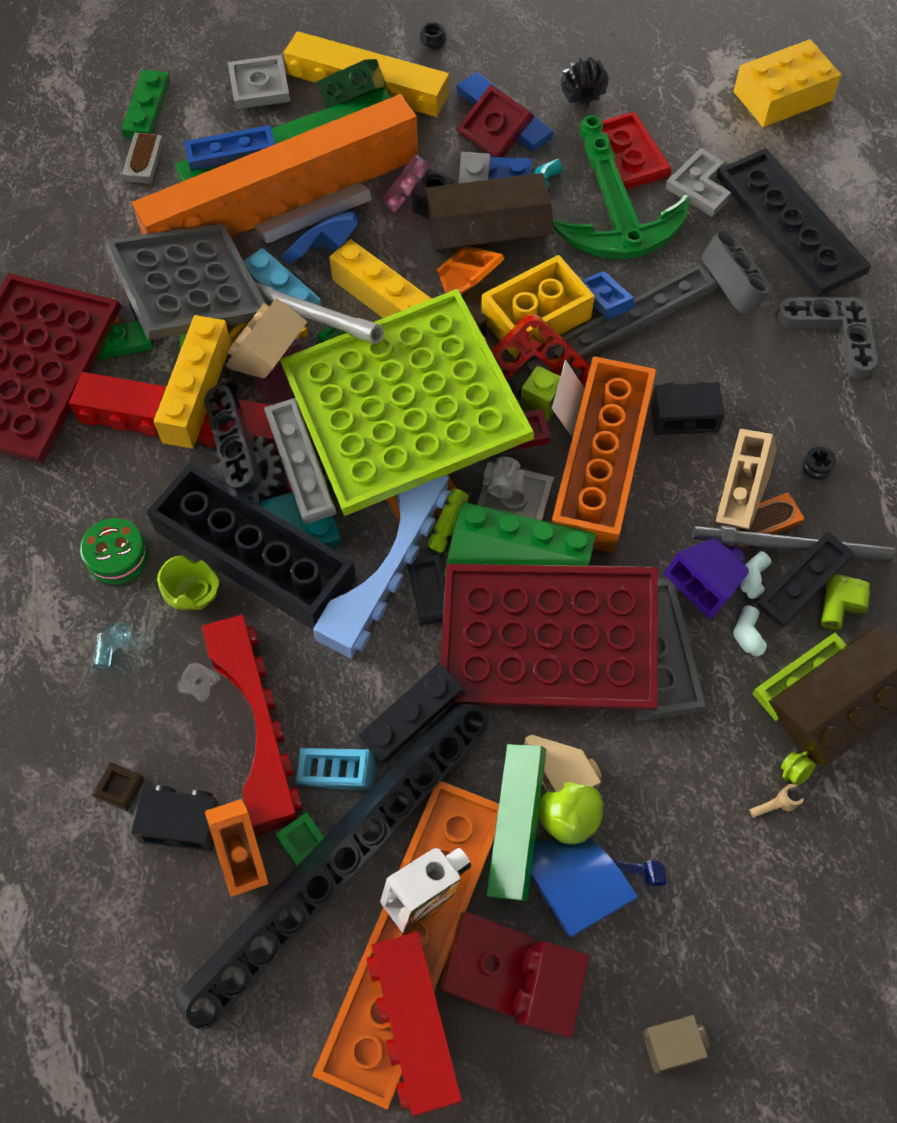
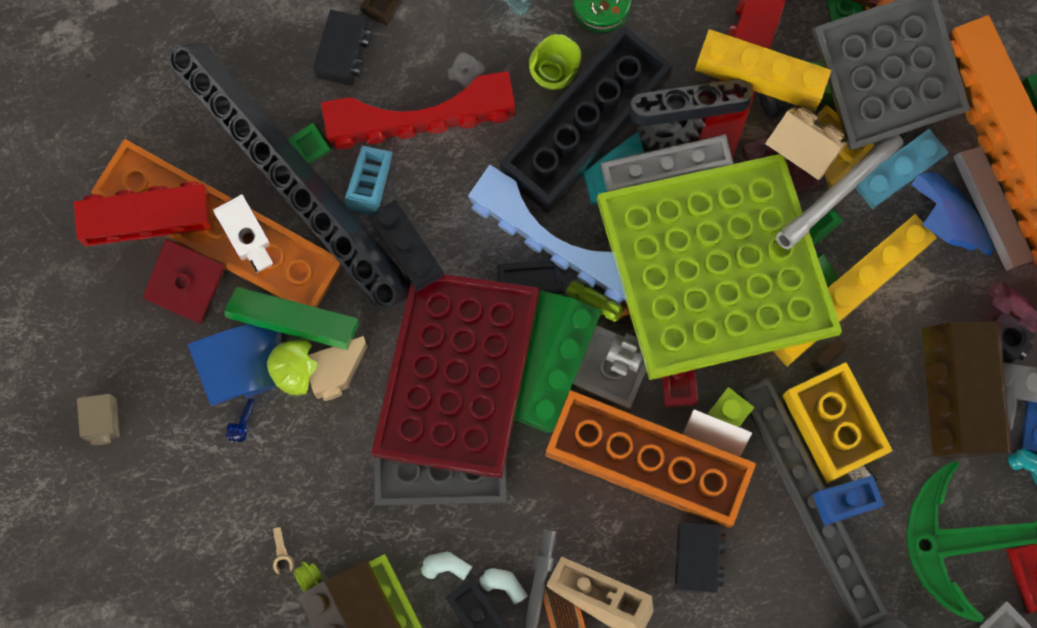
camera: 95 degrees right, 15 degrees up
(236, 847) = (303, 89): orange brick -> none
(467, 268) = (897, 360): orange slope -> none
(528, 345) = (783, 407): red beam -> none
(551, 989) = (154, 326): dark red brick -> none
(708, 574) = (502, 537): dark purple torso -> none

